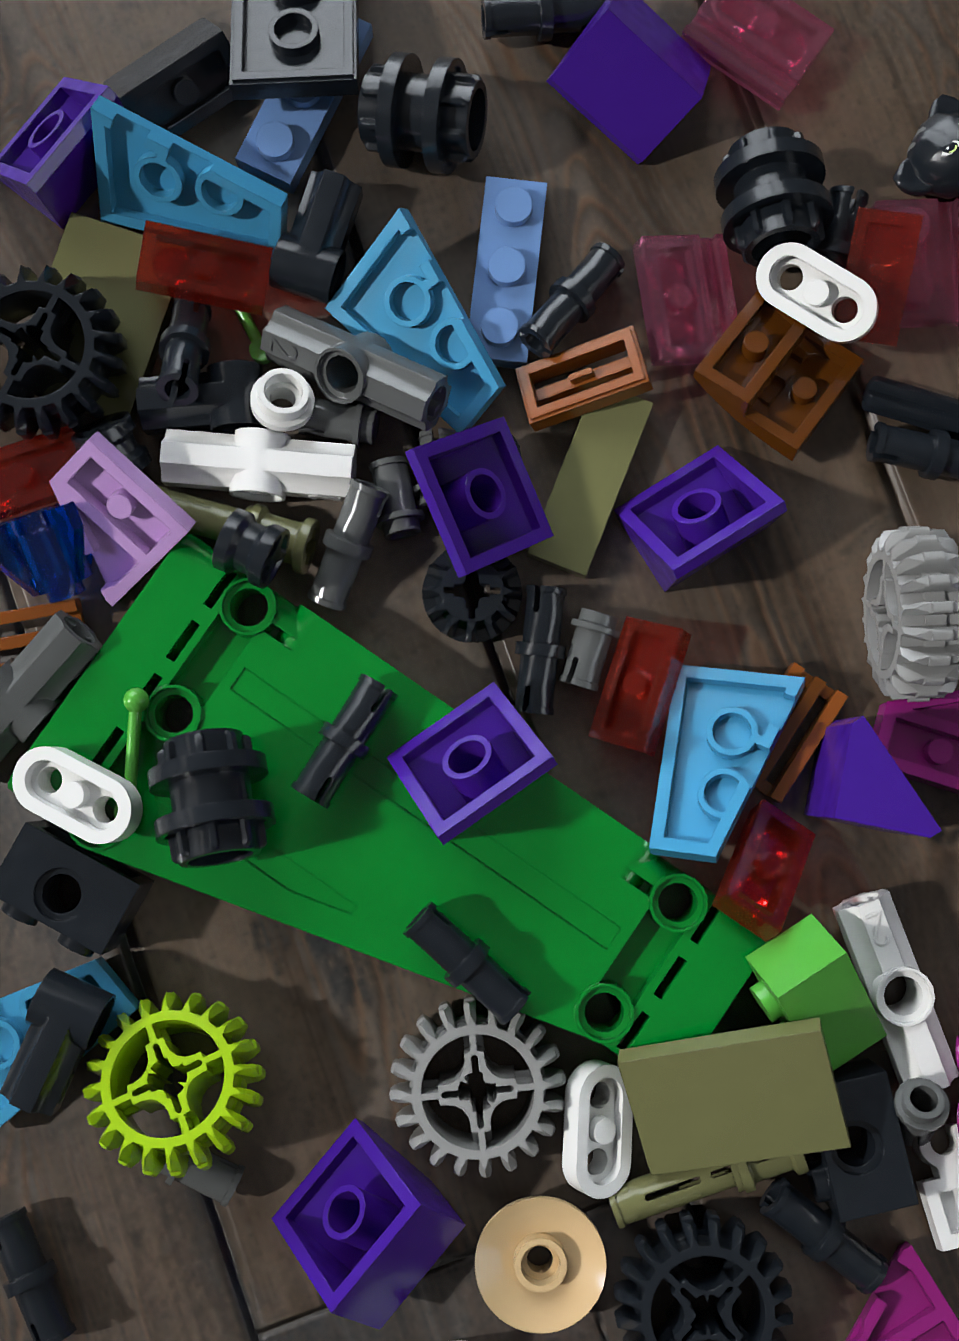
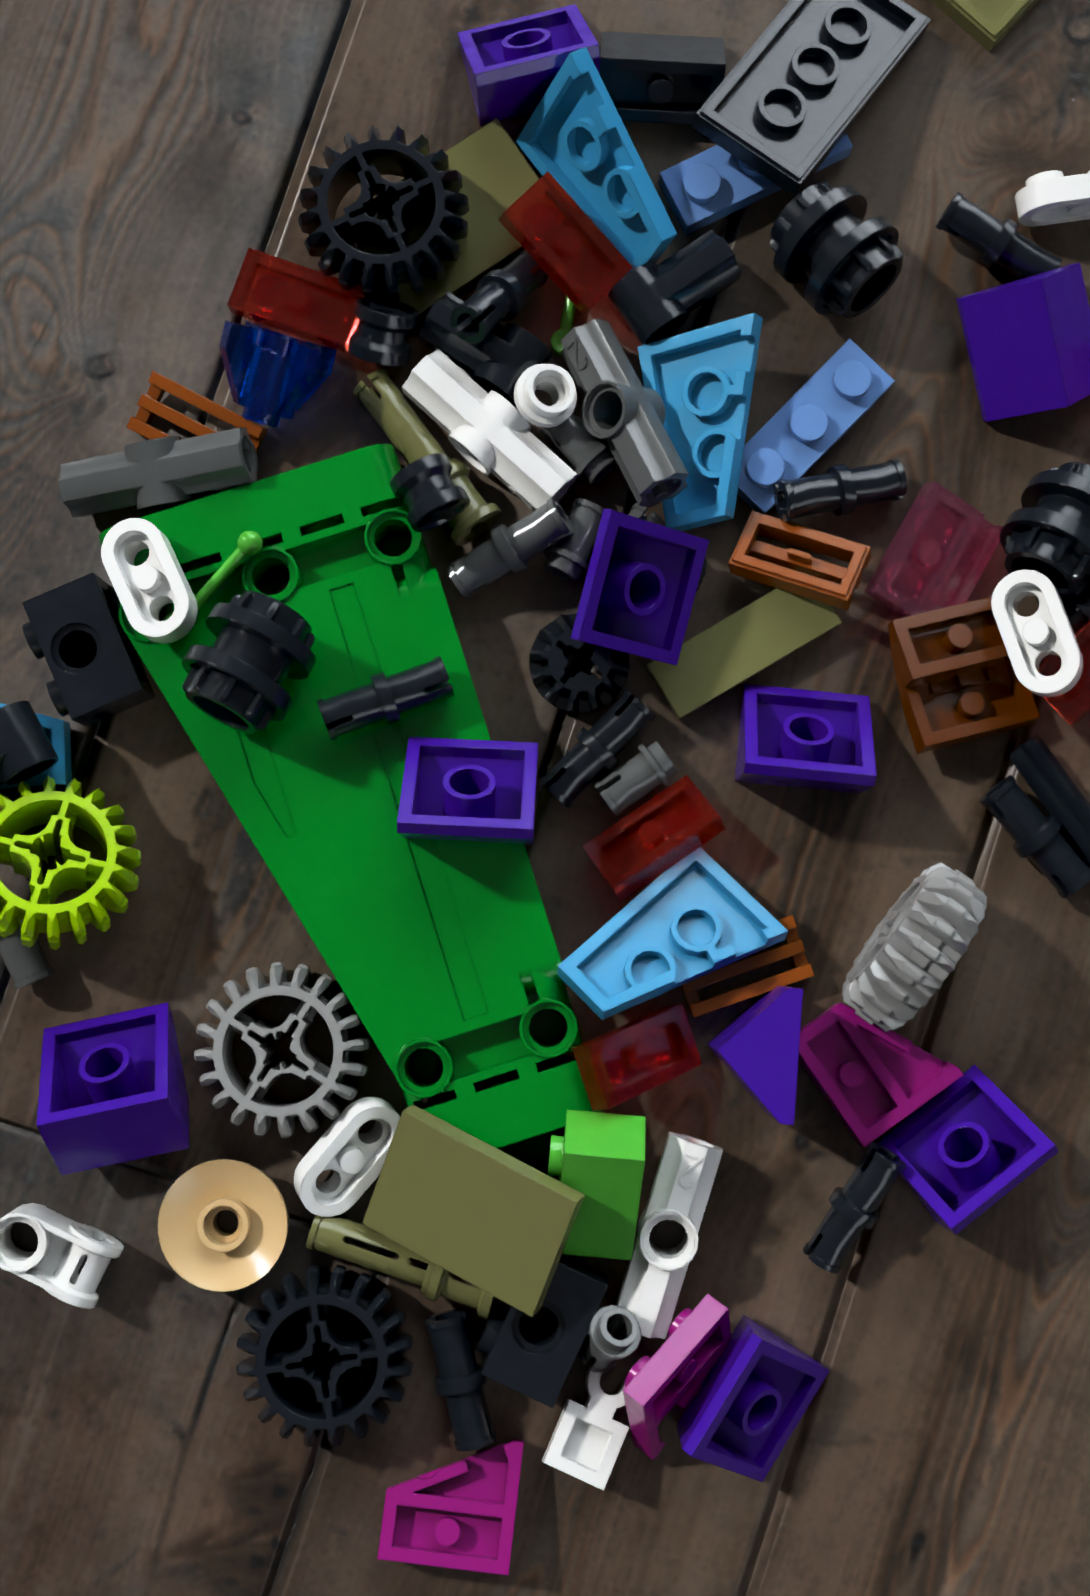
camera: 40 degrees right, 0 degrees up
(123, 514) = (352, 390): lavender wing -> none
(467, 963) = (346, 943): black pin -> none

